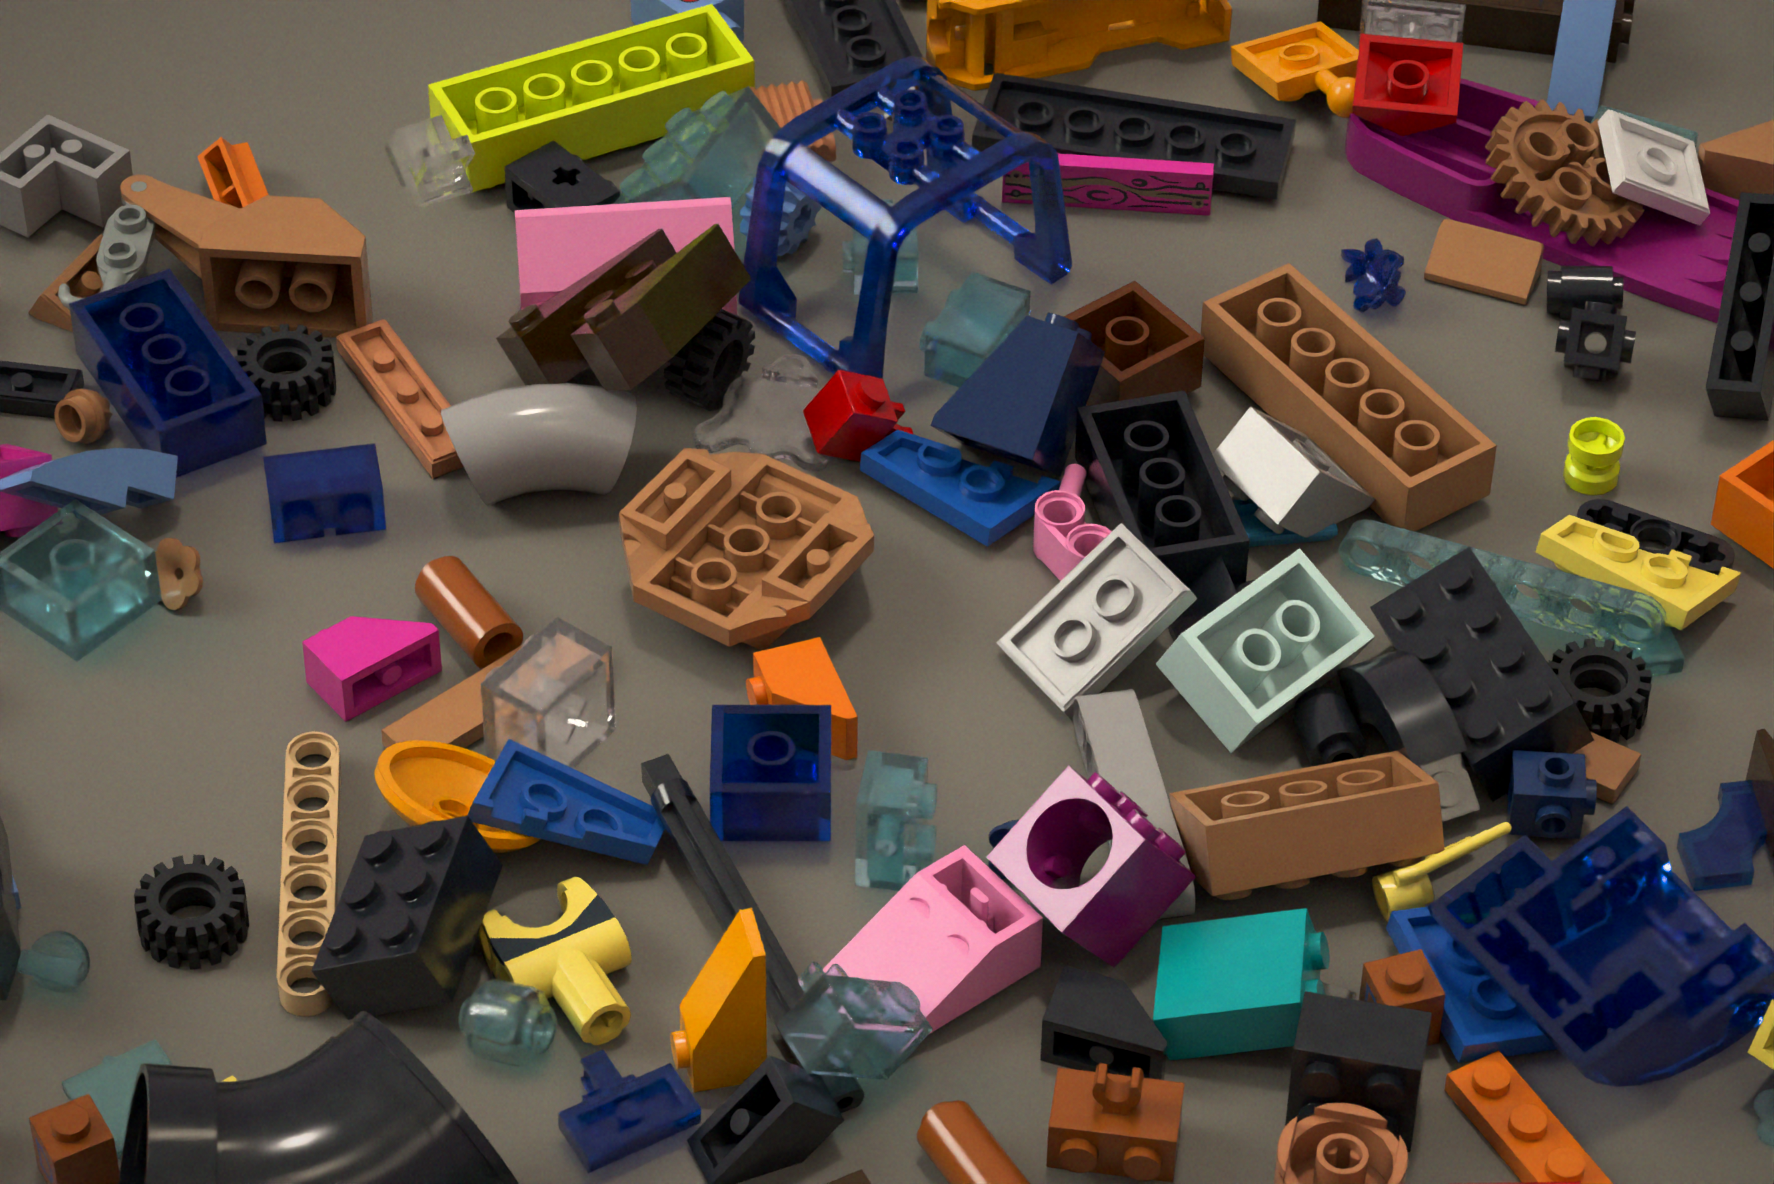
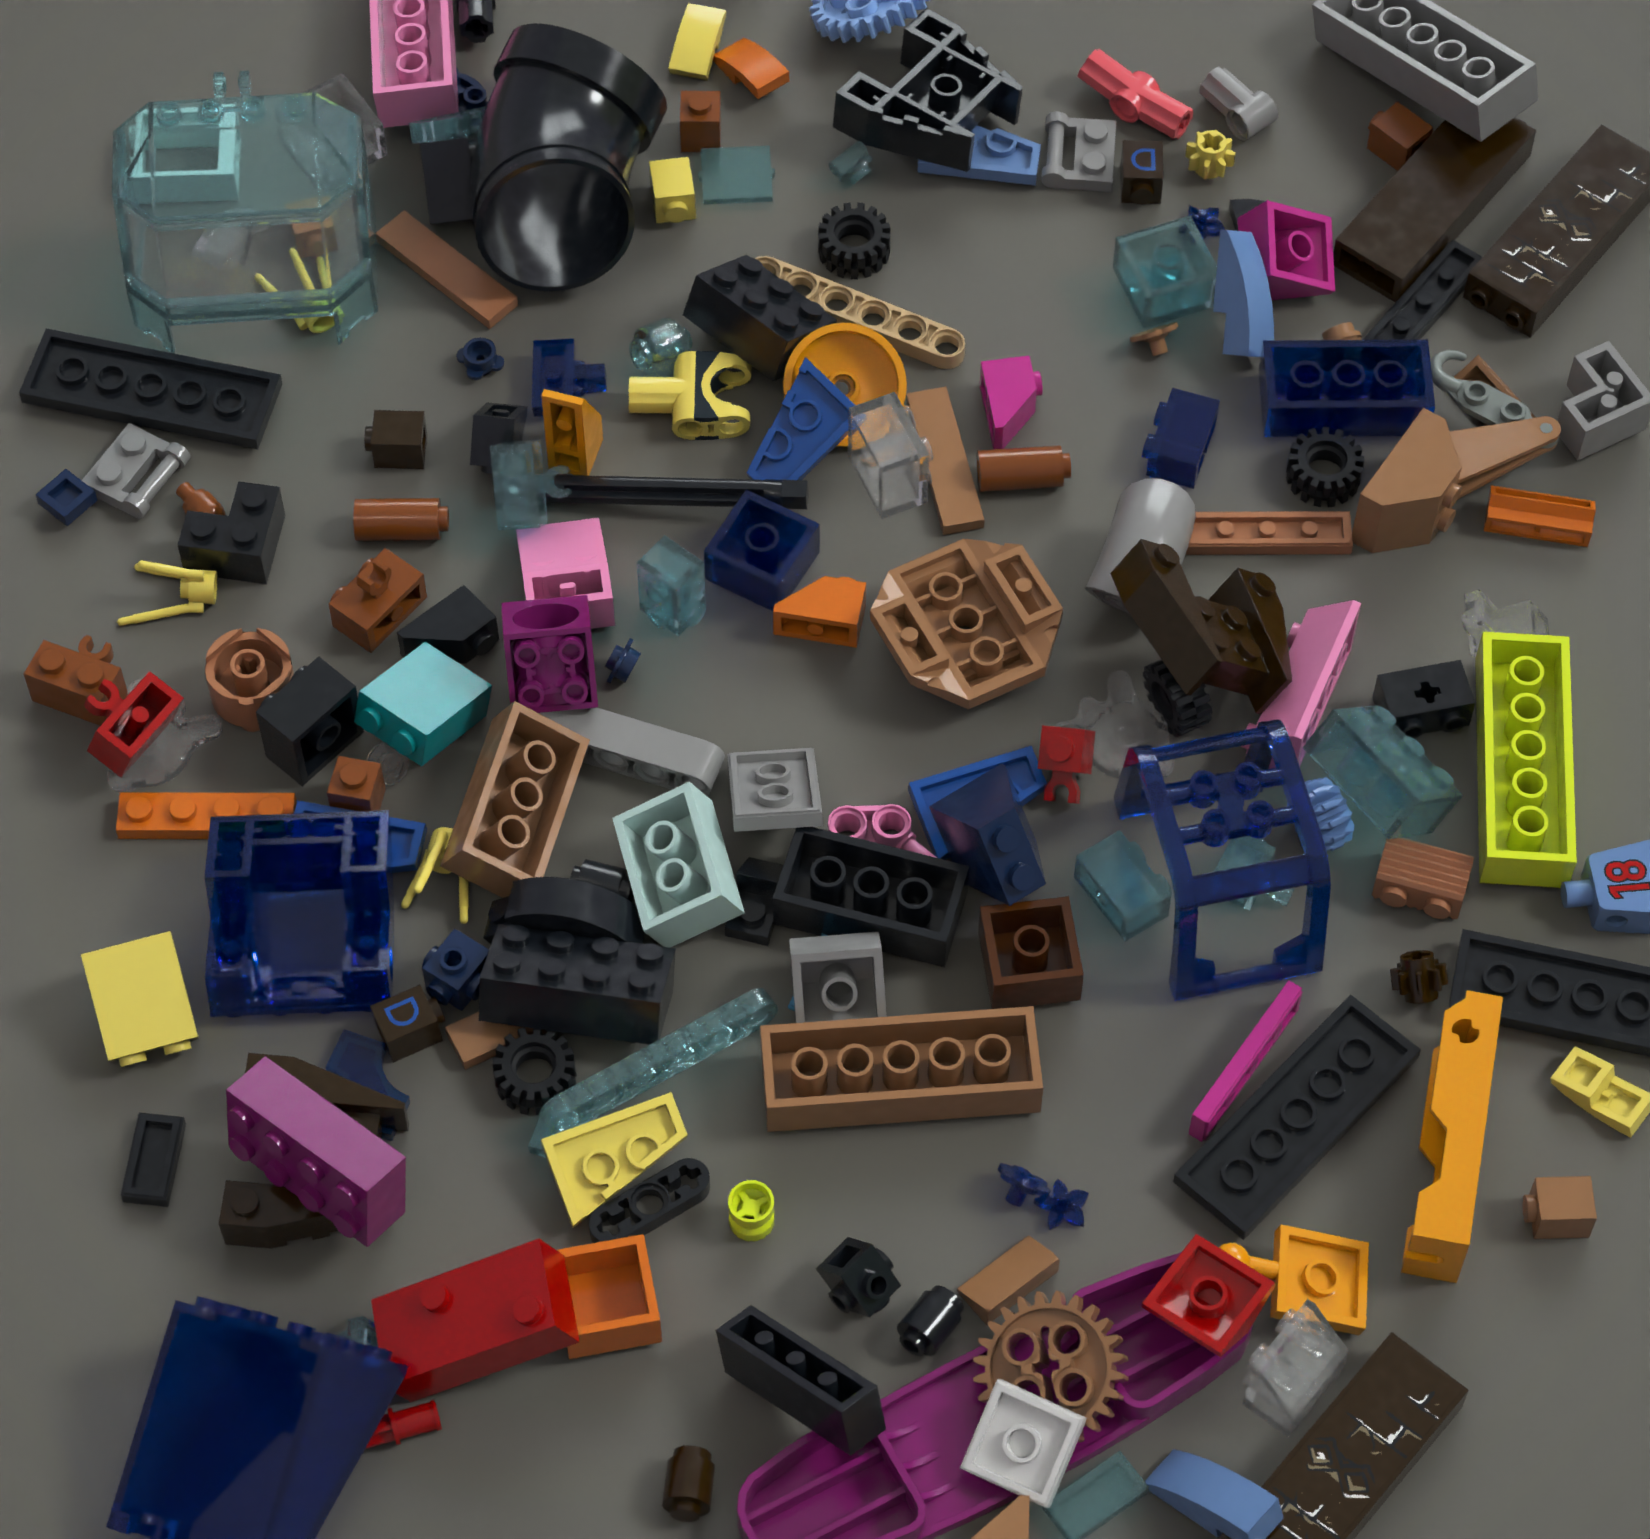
camera: 120 degrees right, 15 degrees up
(1653, 799) = (408, 1022): none -> dark brown brick

